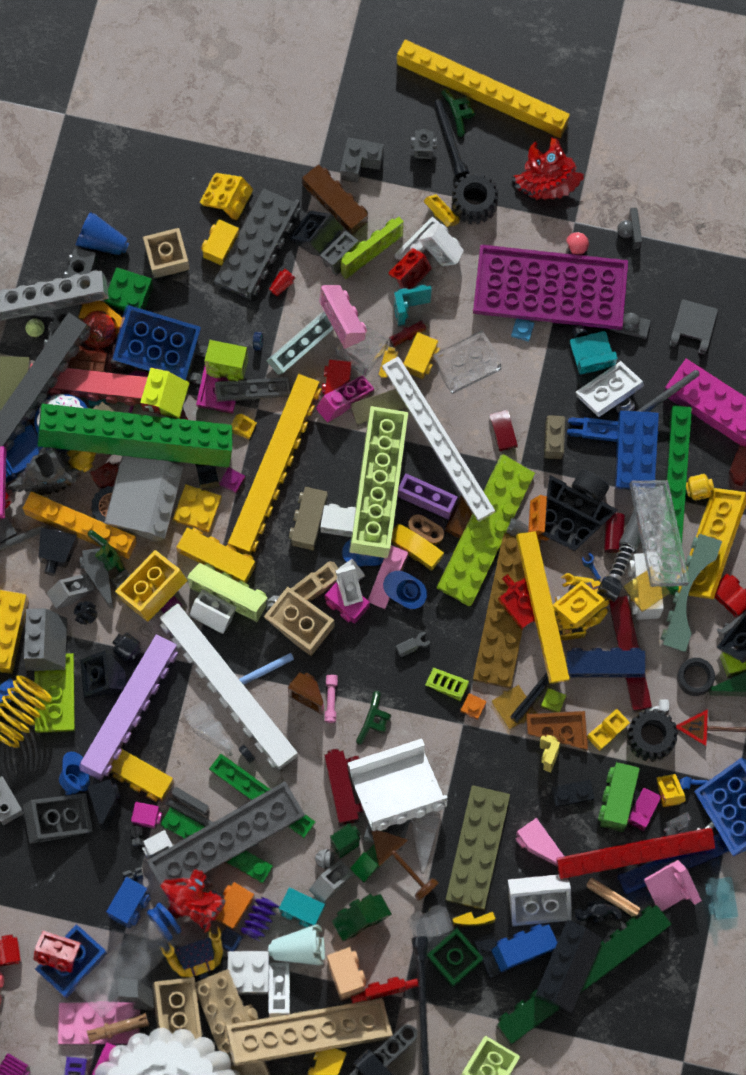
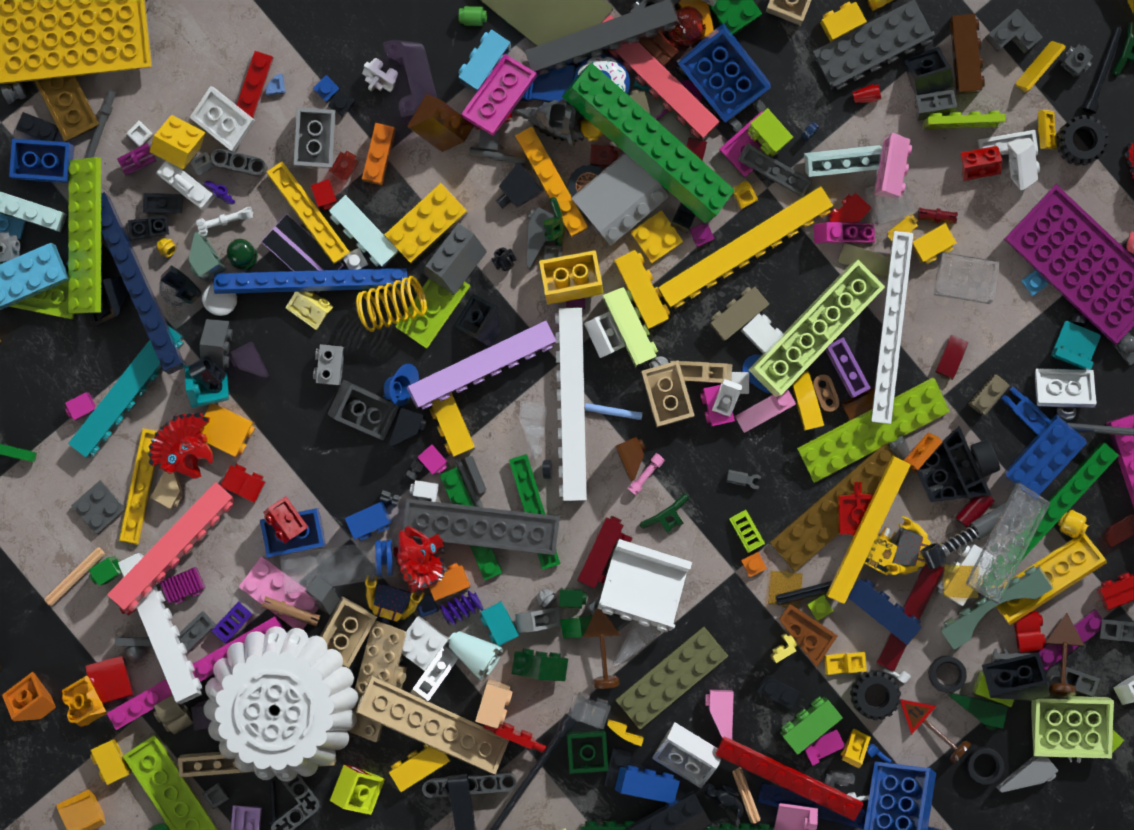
camera: 35 degrees right, 15 degrees up
(70, 590) = (505, 231): light grey slope -> none
(126, 646) = (515, 311): black head -> none
(164, 393) = (698, 124): neon yellow slope -> none
(398, 169) = (1039, 66): none -> yellow slope
(405, 589) = (770, 431): blue piece -> none
(406, 298) = (957, 185): teal bracket -> none
(579, 604) = (898, 551): yellow plate -> none
(590, 565) = (935, 522): blue hand -> none

